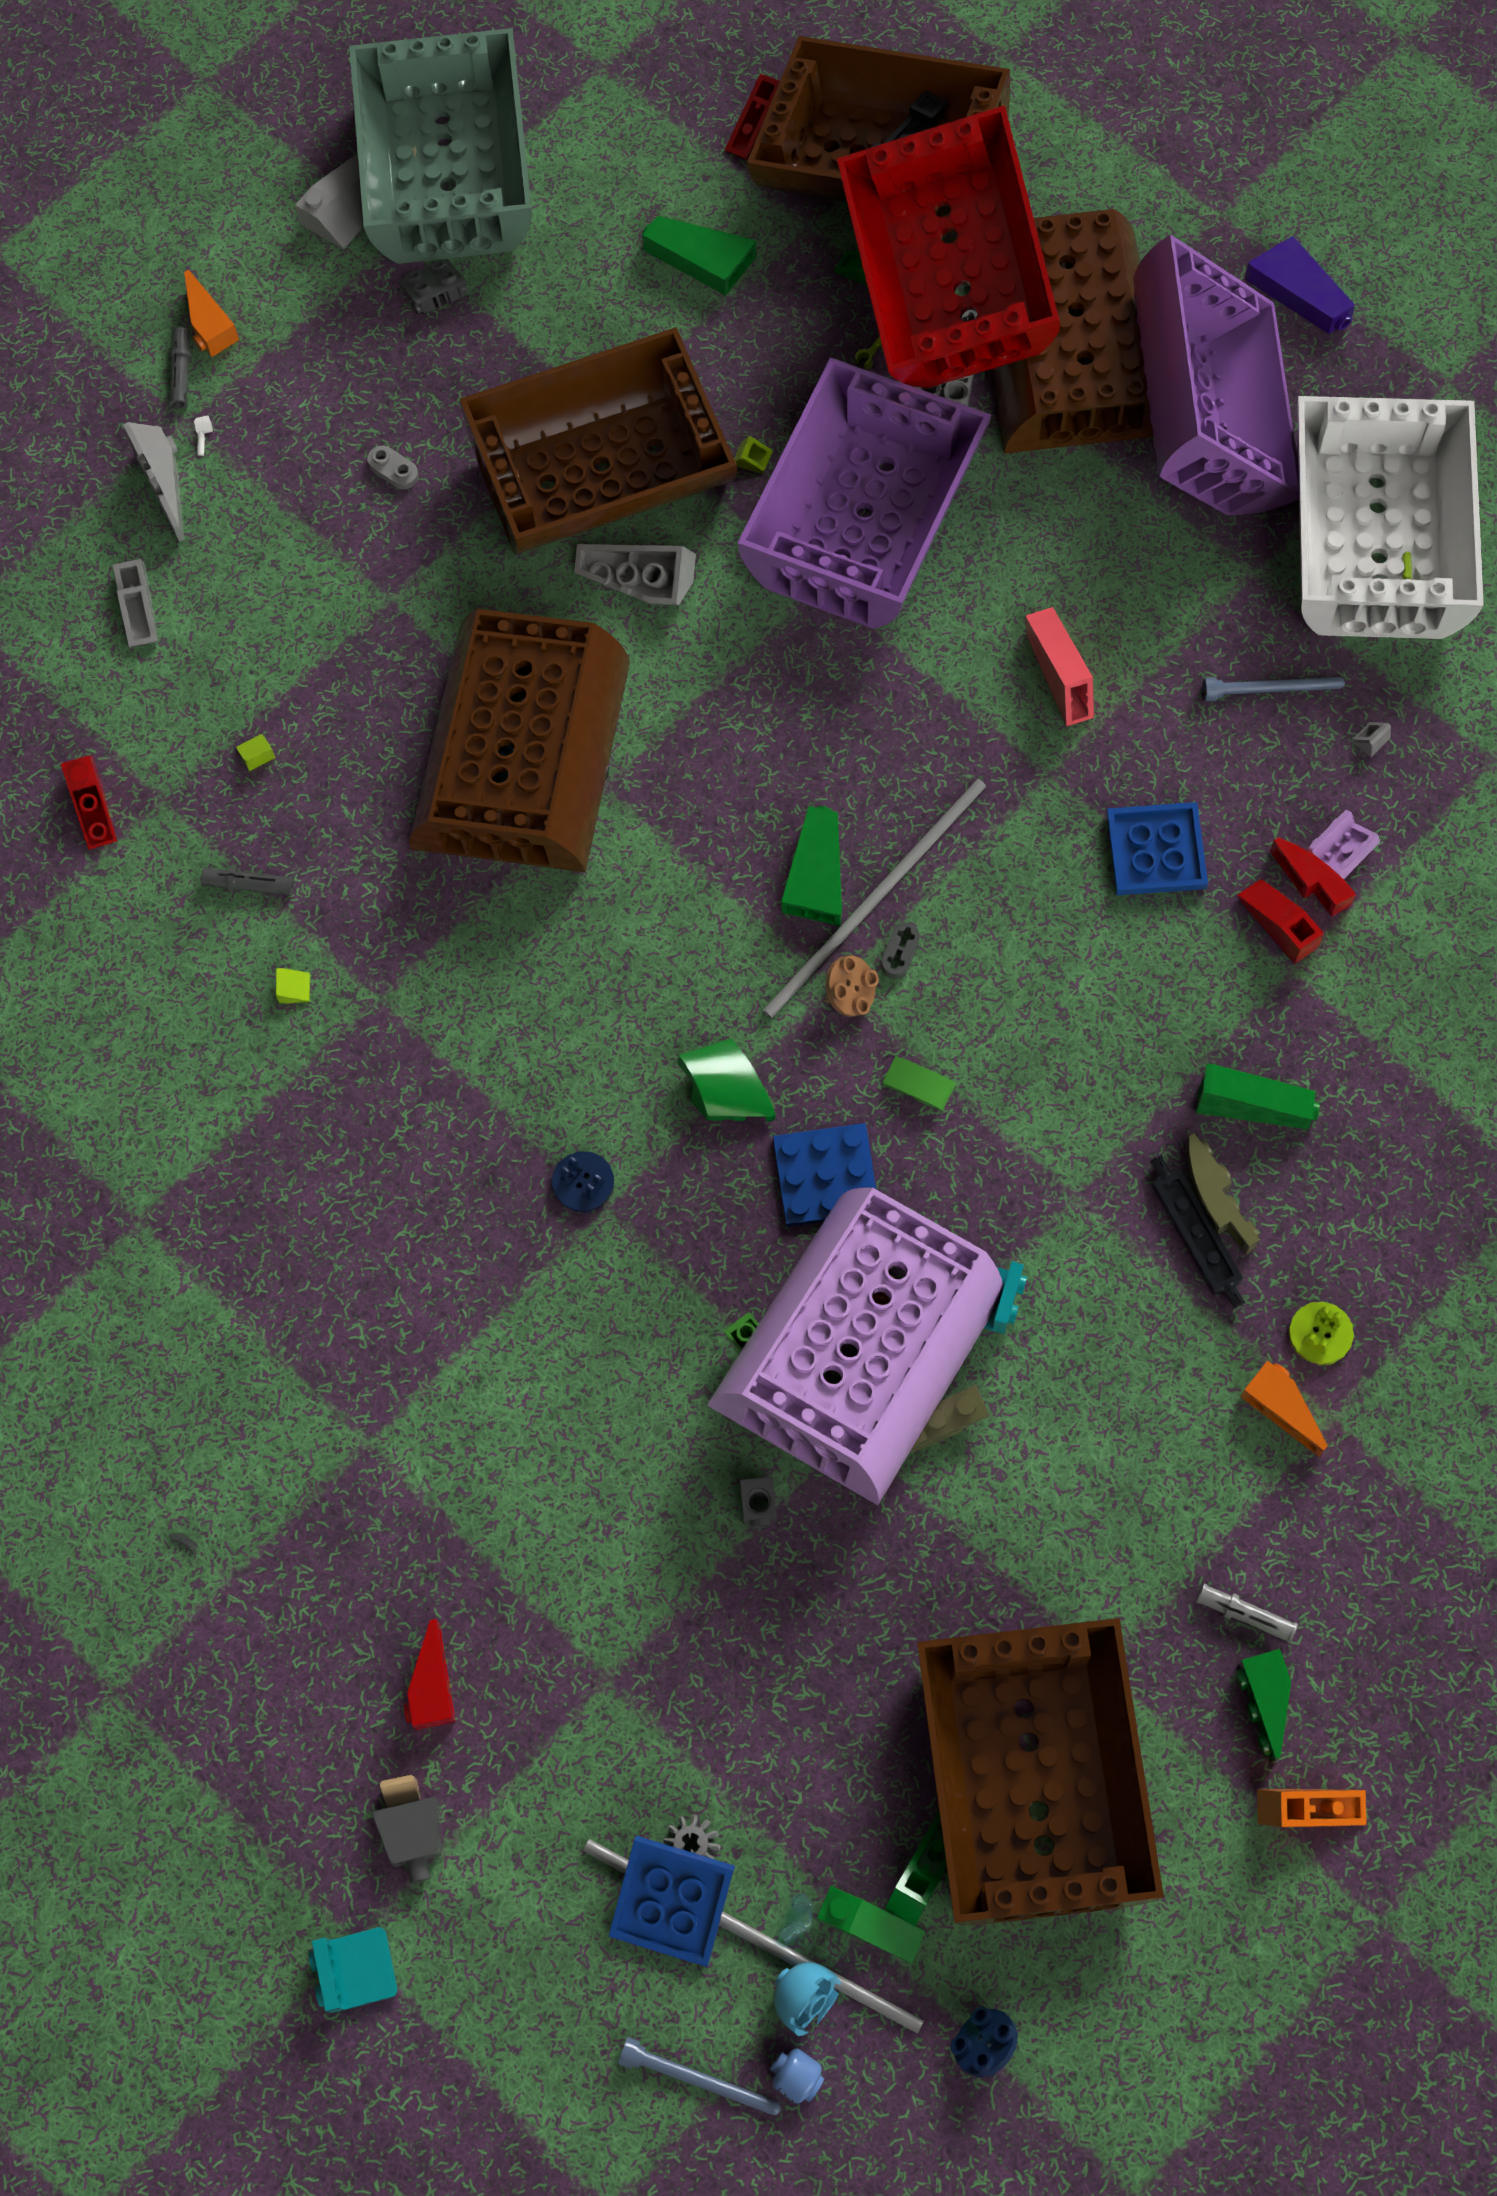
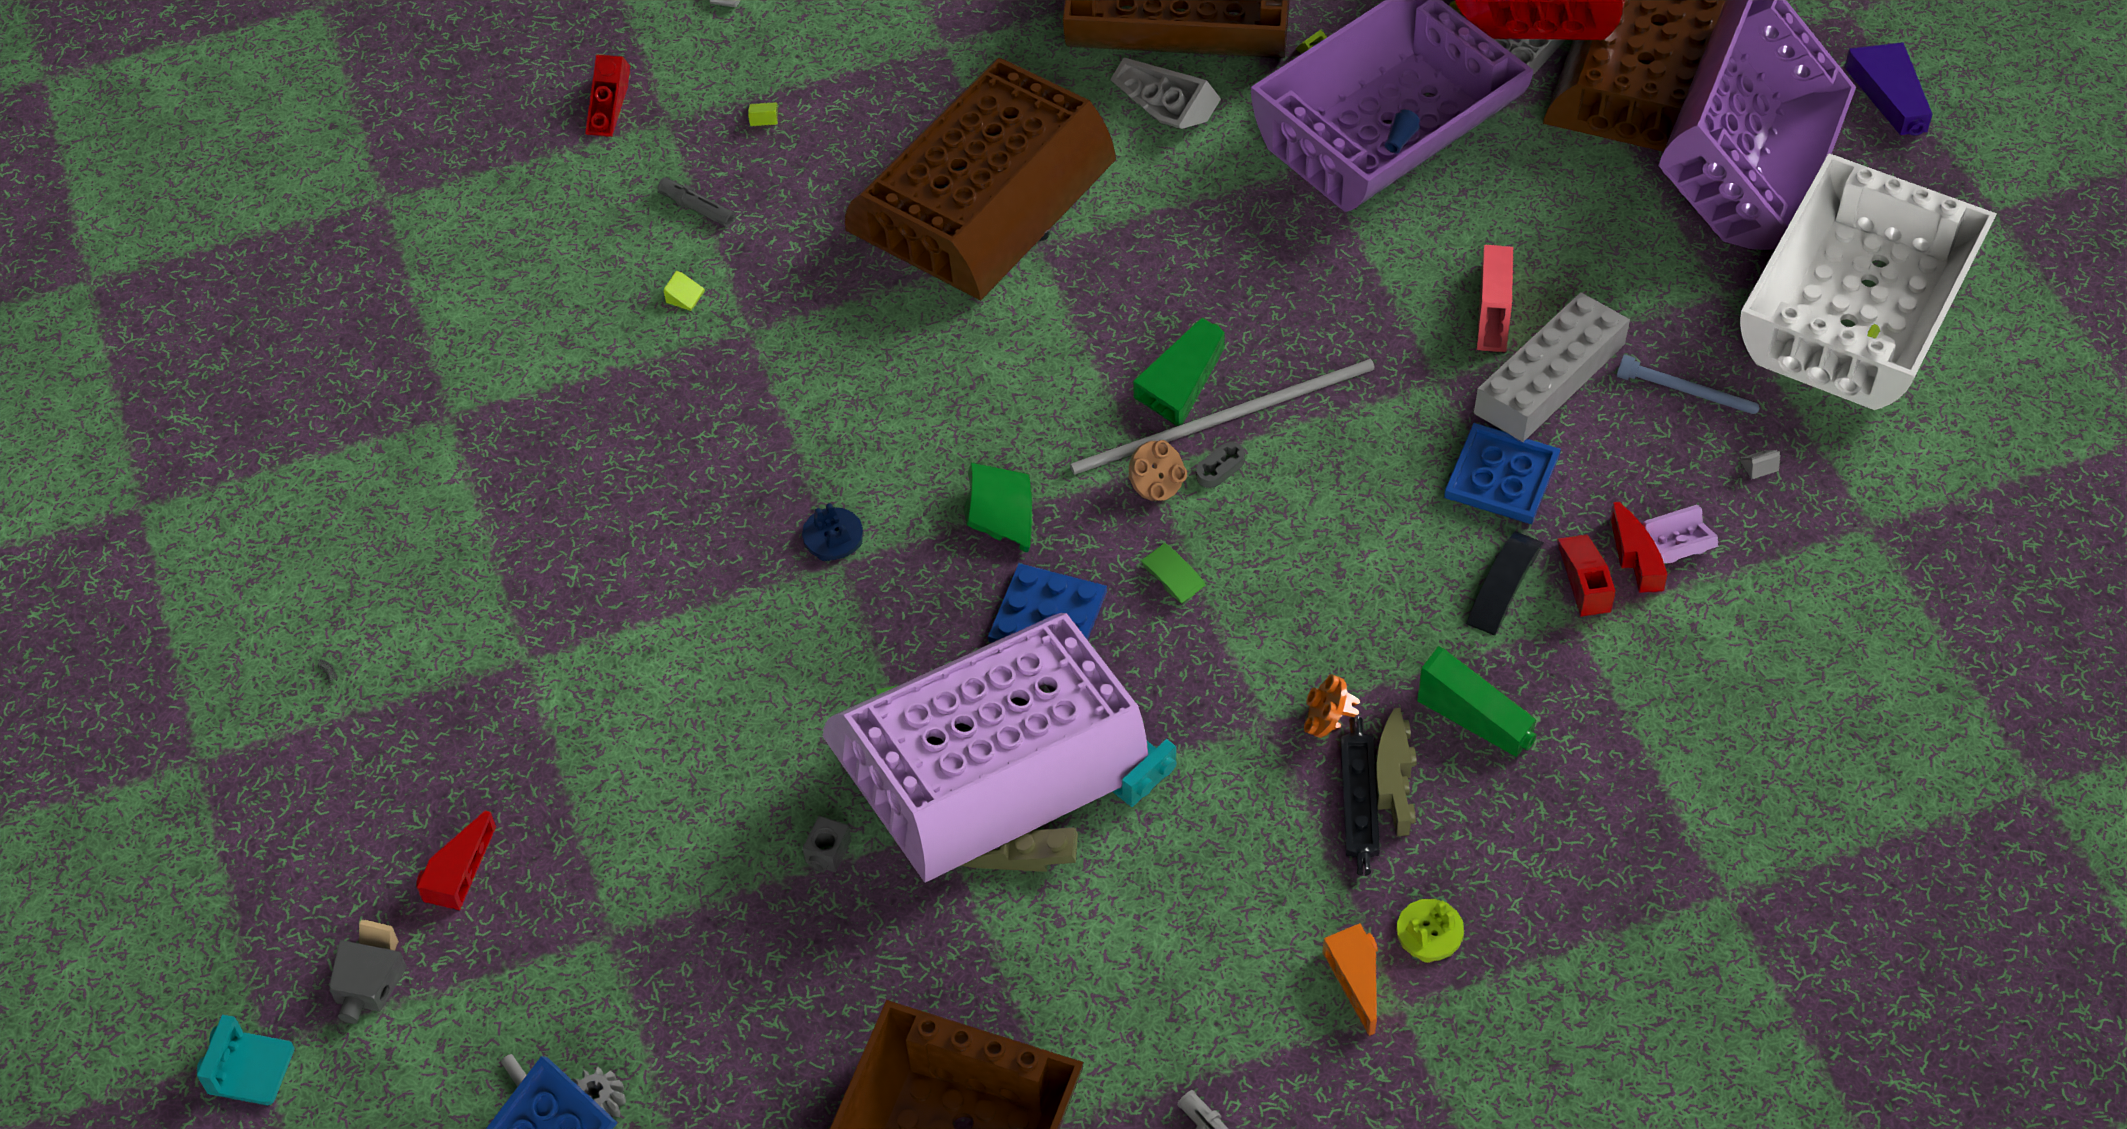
camera: 25 degrees right, 15 degrees down
(908, 535) = (1402, 129): none -> dark blue cone
(1130, 1160) = (1328, 706): none -> orange plate
(1149, 721) = (1551, 366): none -> light grey brick
(1213, 959) = (1503, 582): none -> black slope

